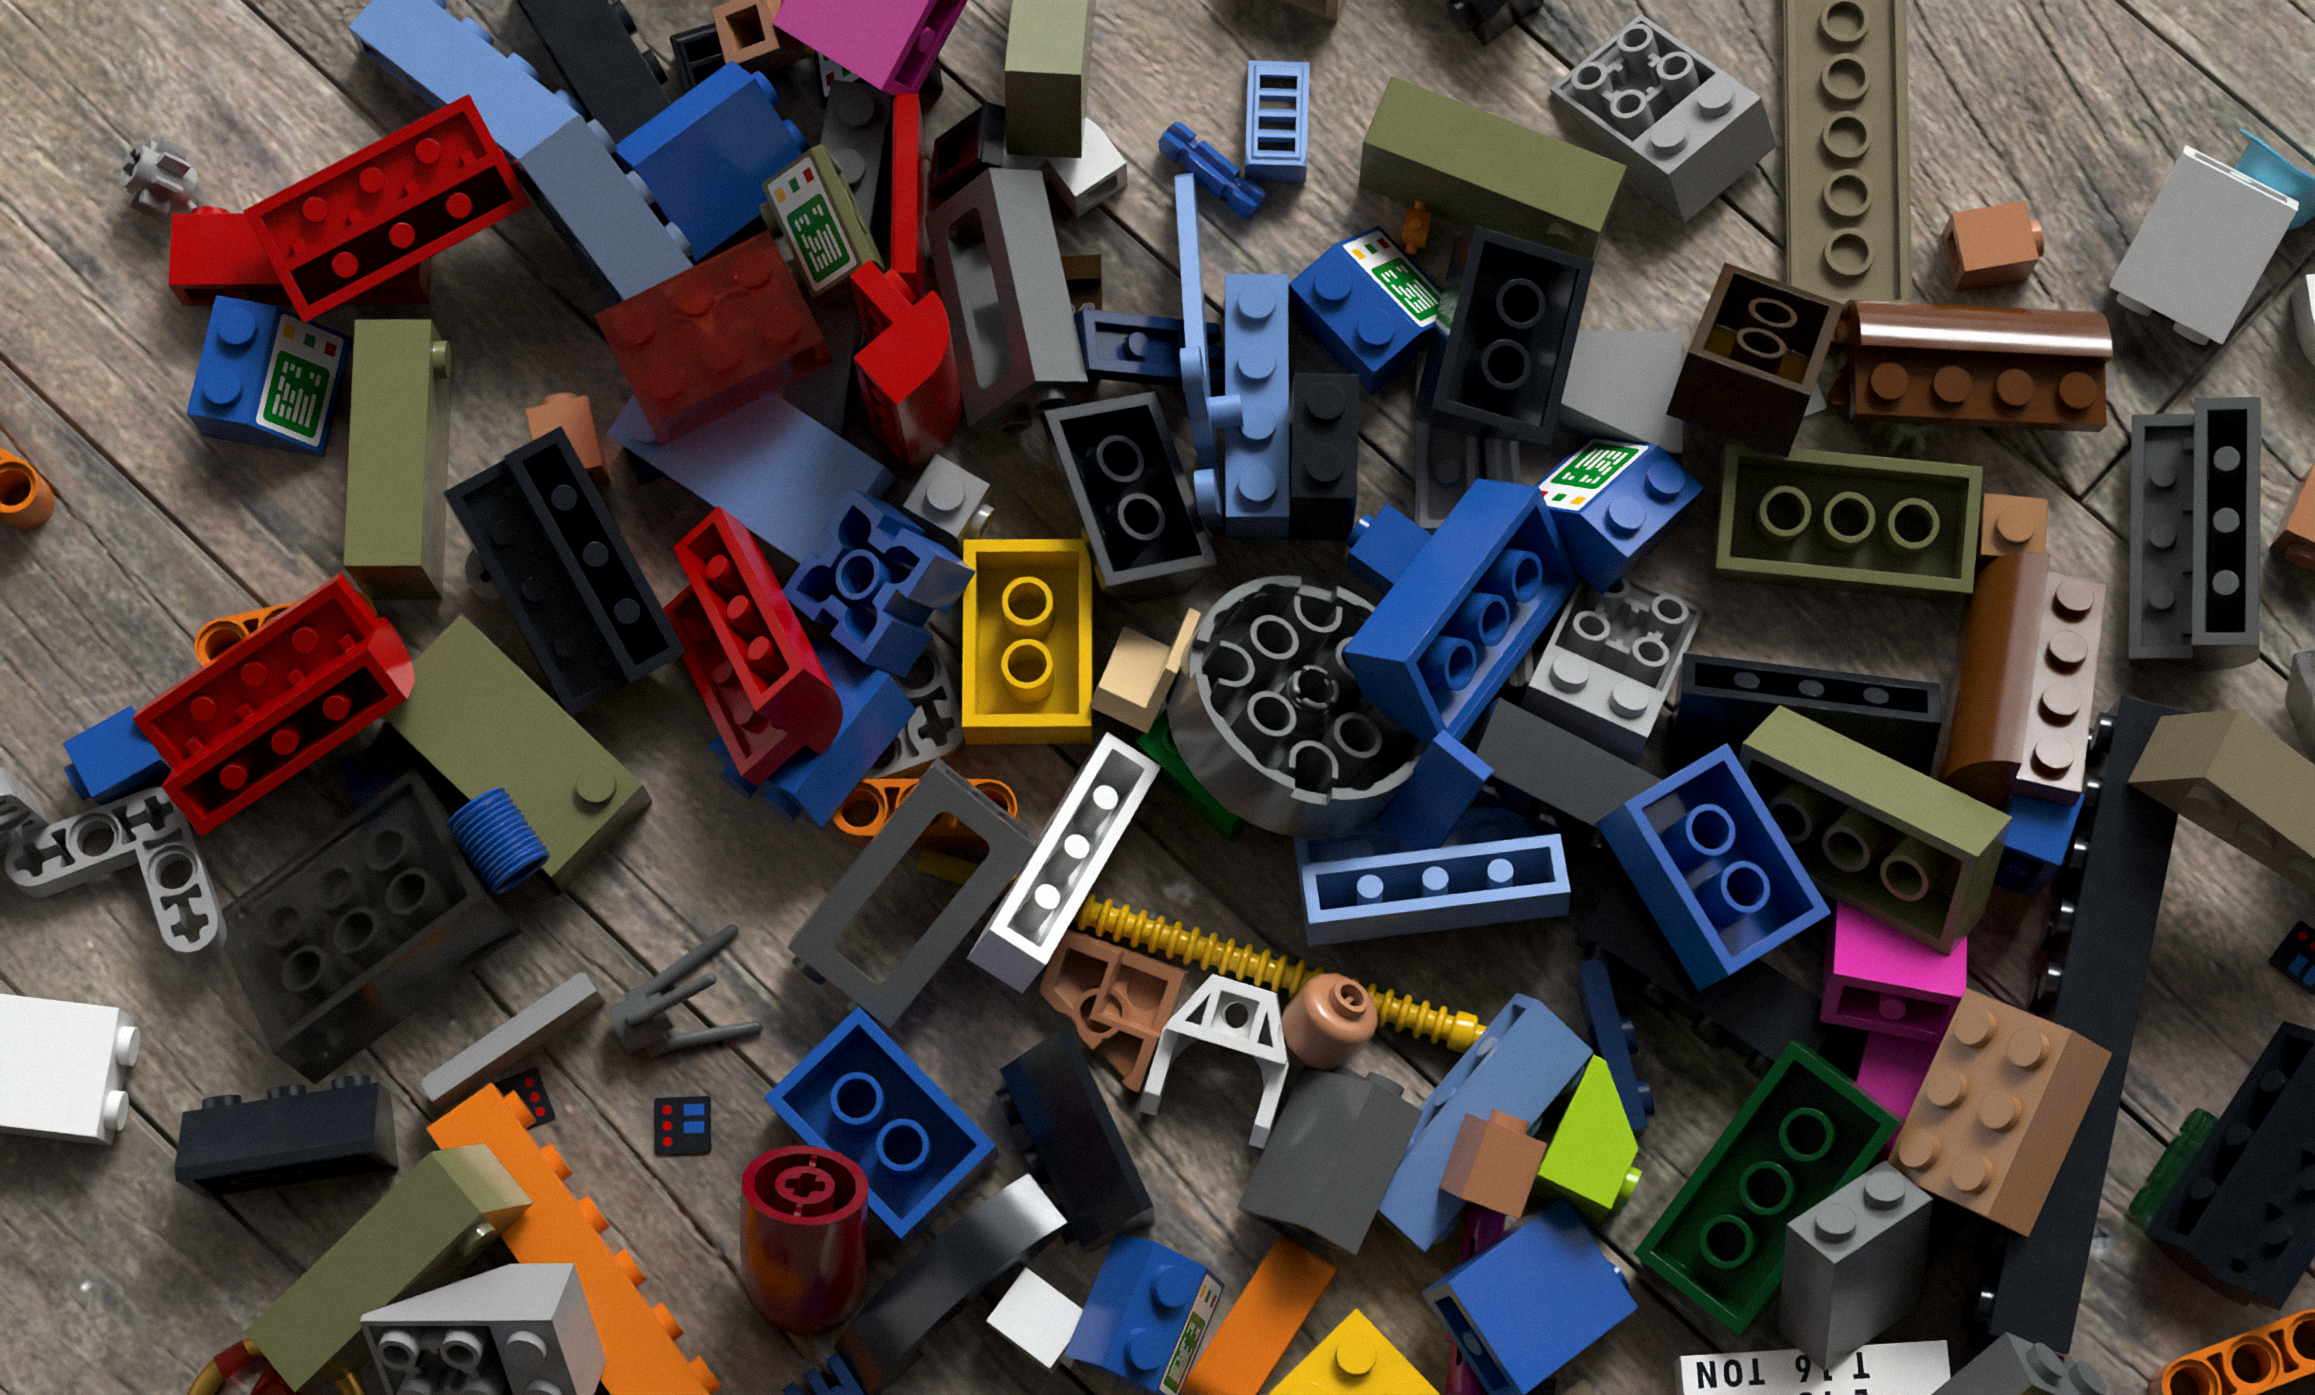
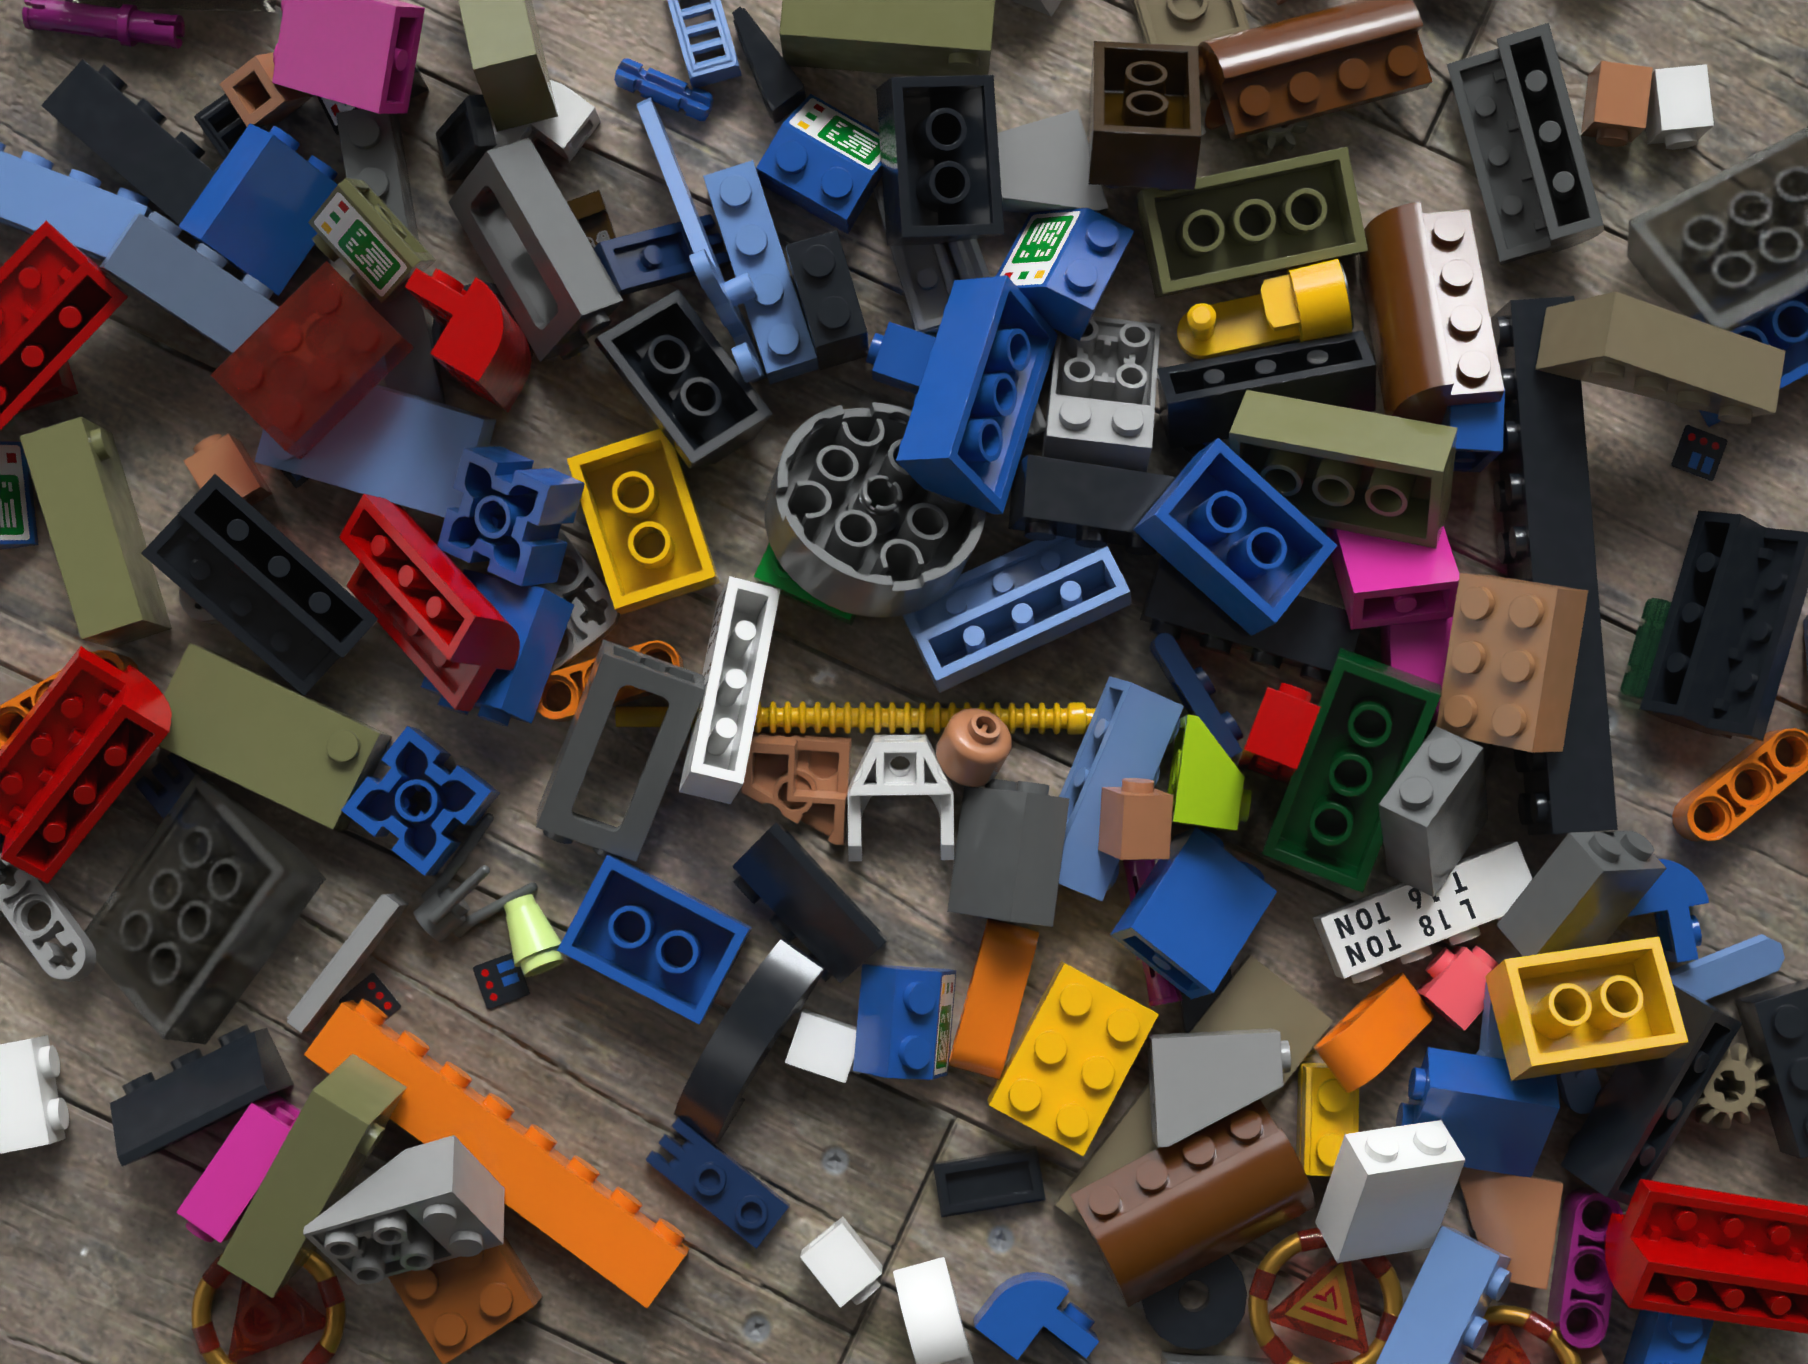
camera: 20 degrees left, 10 degrees up
(299, 1234) = (238, 1169): none -> dark pink brick
(498, 840) = (280, 817): blue piece -> none
(671, 841) = (390, 806): none -> blue brick
(736, 1083) = (531, 937): none -> yellowish green cone
(804, 1238) = (624, 1045): dark red brick -> none
(908, 192) = (431, 194): red tile -> none
(950, 505) = (546, 430): light grey brick -> none
(1141, 675) = (741, 520): tan panel -> none
(1343, 196) = (775, 79): none -> black slope
(1416, 228) = (840, 87): orange piece -> none
(1436, 794) = (1002, 547): blue tile -> none
(1691, 1105) = (1280, 732): none -> red brick
(1863, 633) = (1302, 305): none -> yellow piece
(2010, 526) = (1382, 187): medium nougat brick -> none

